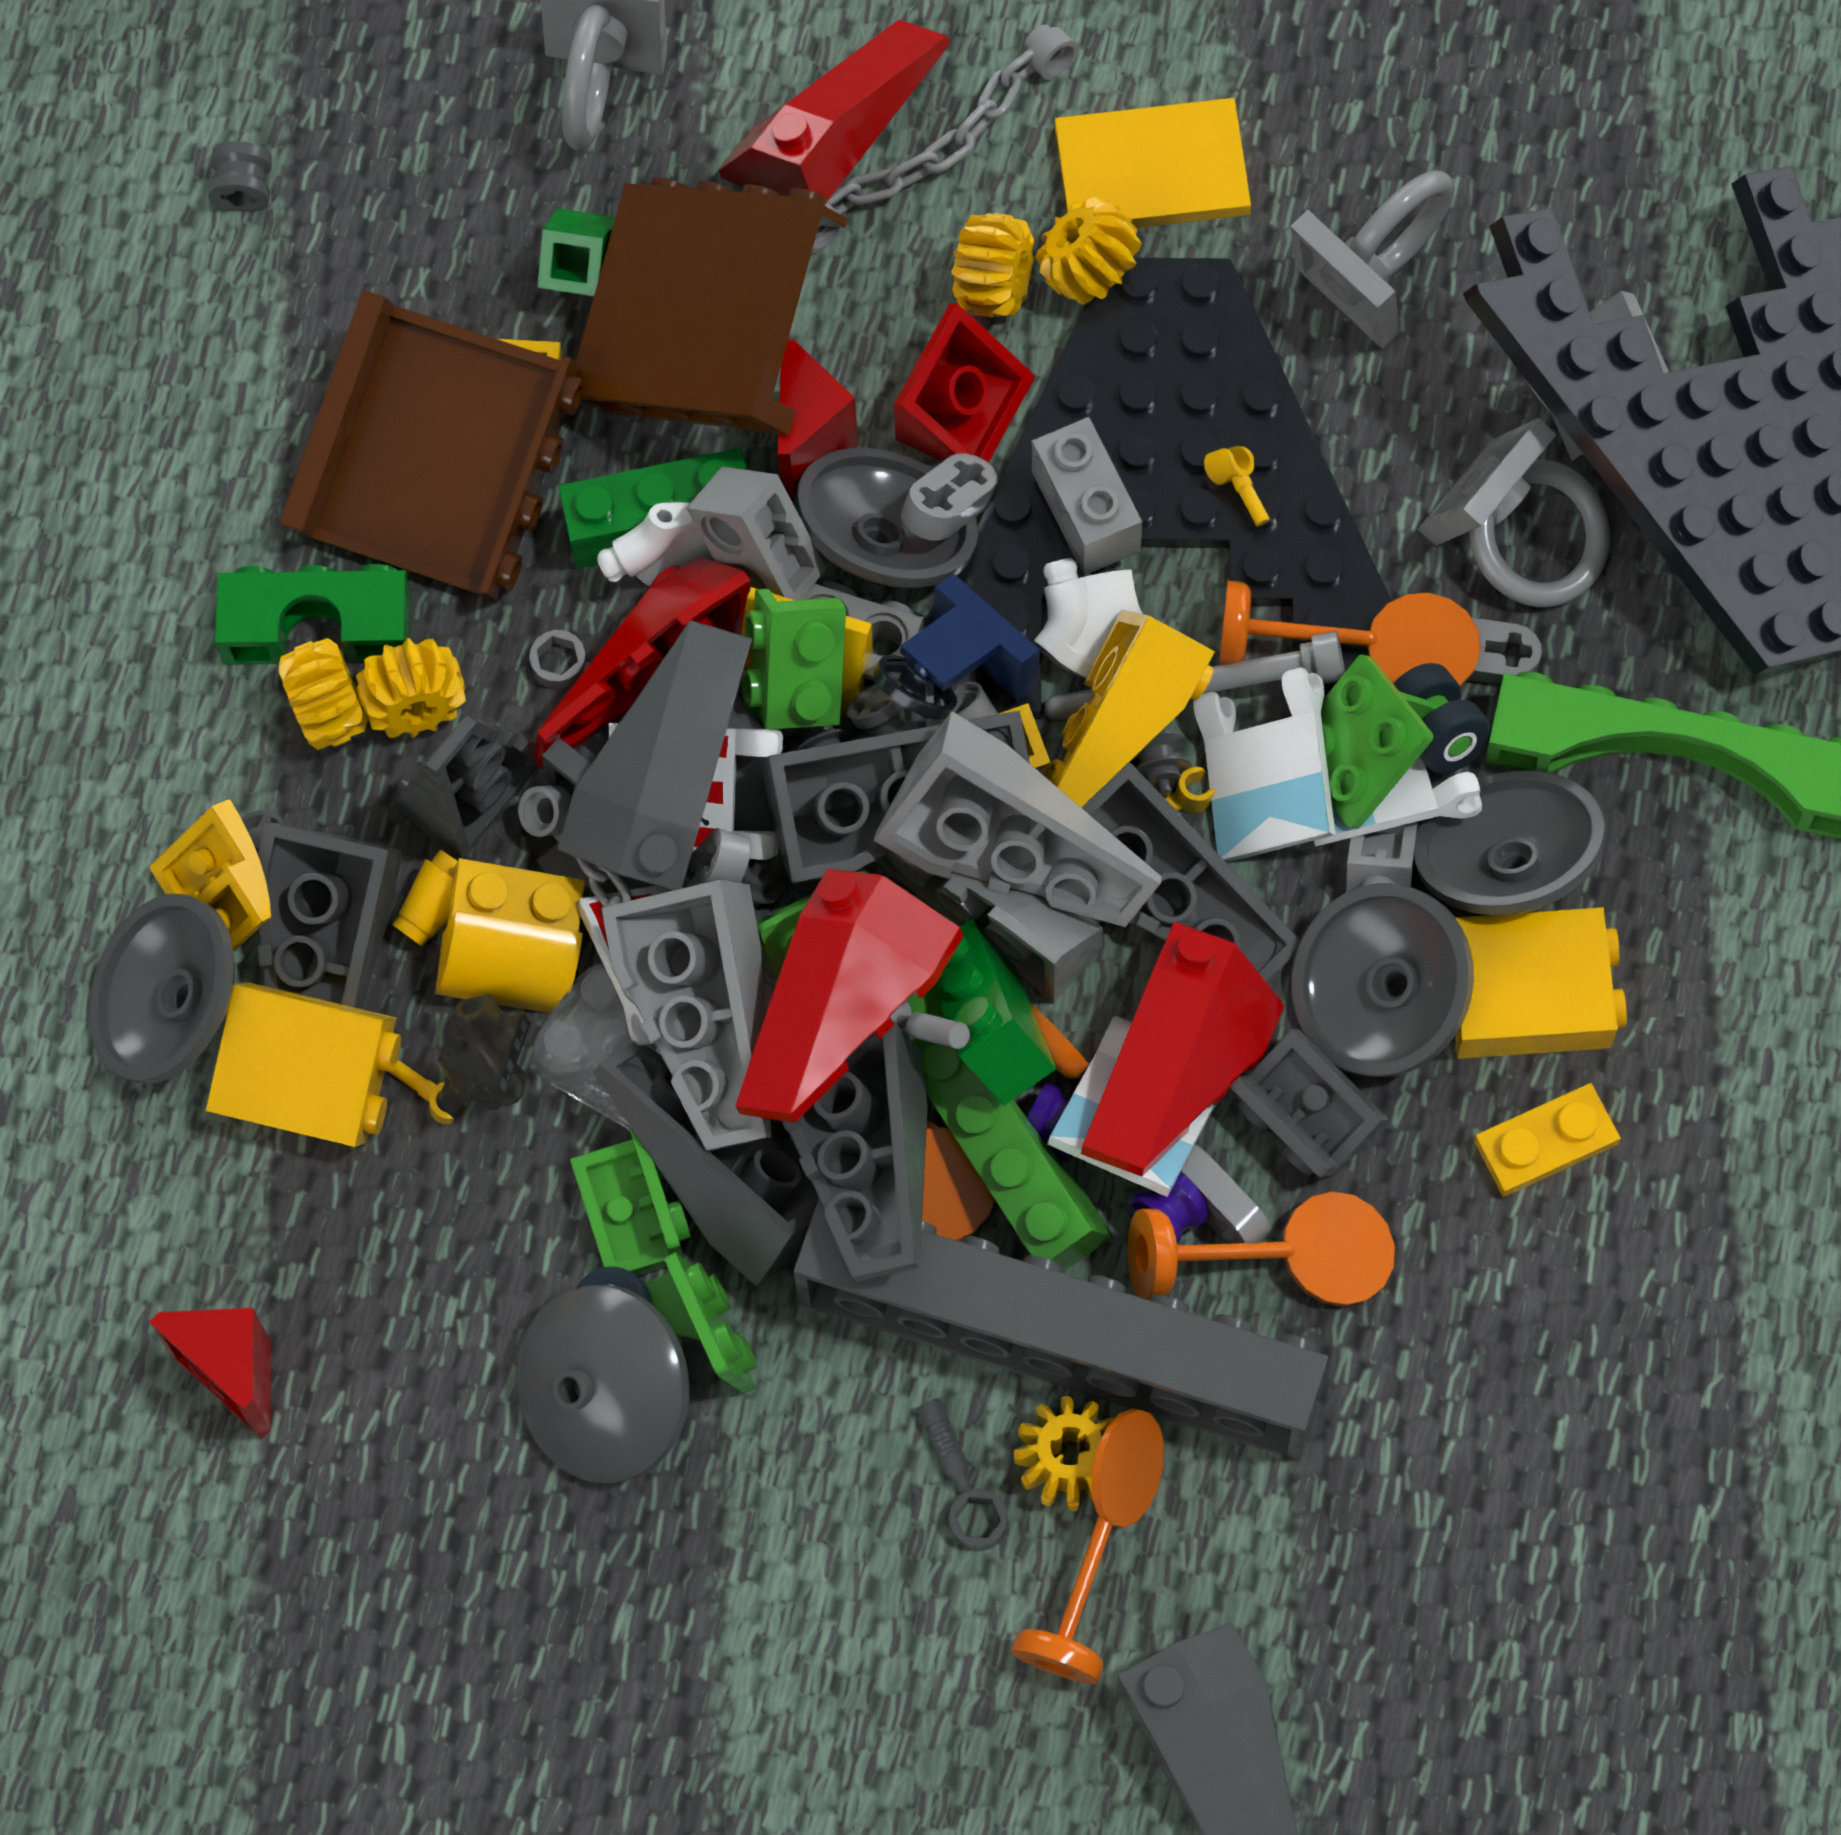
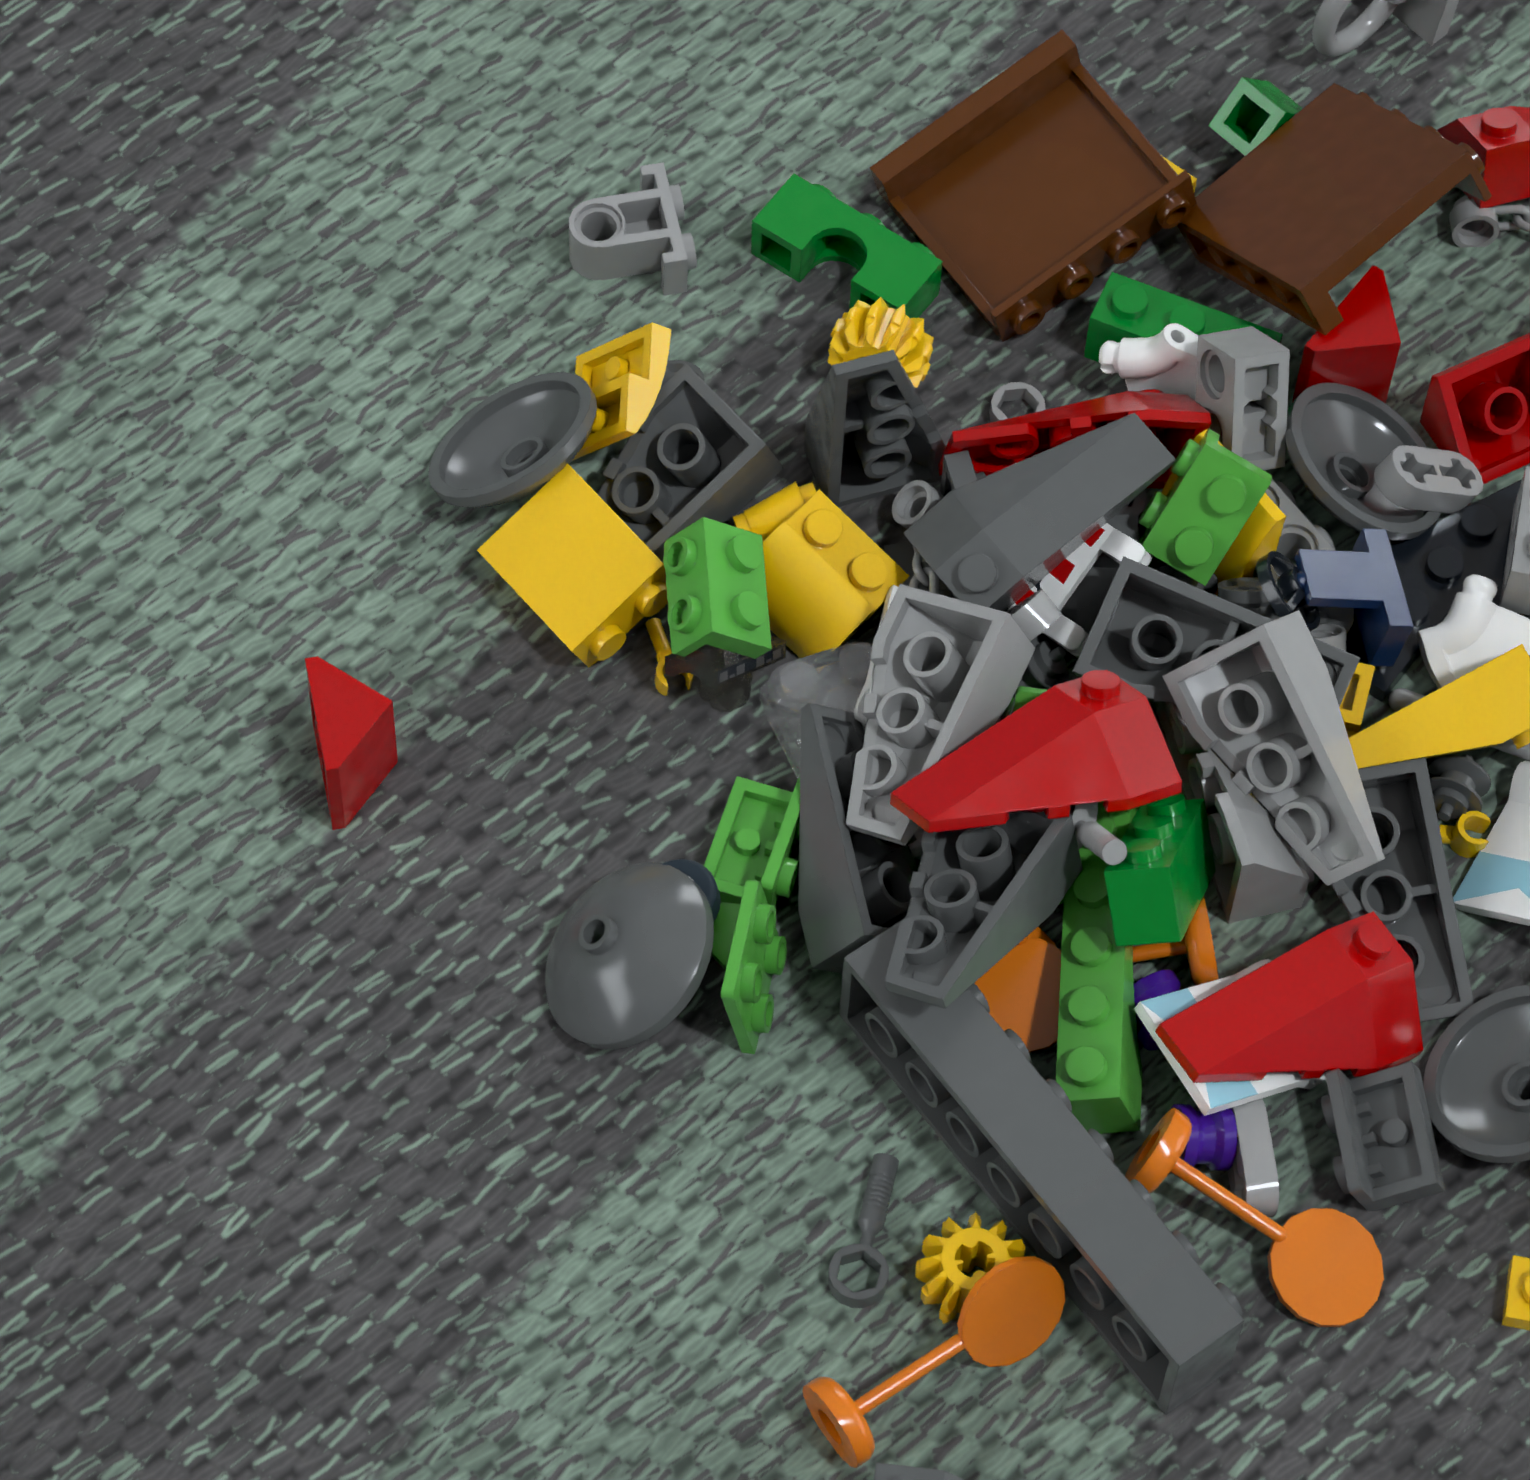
camera: 30 degrees right, 10 degrees down
(120, 712) = (637, 232): none -> light grey pin
(322, 693) = (806, 310): yellow gear -> none
(446, 1015) = (717, 589): none -> bright green bracket

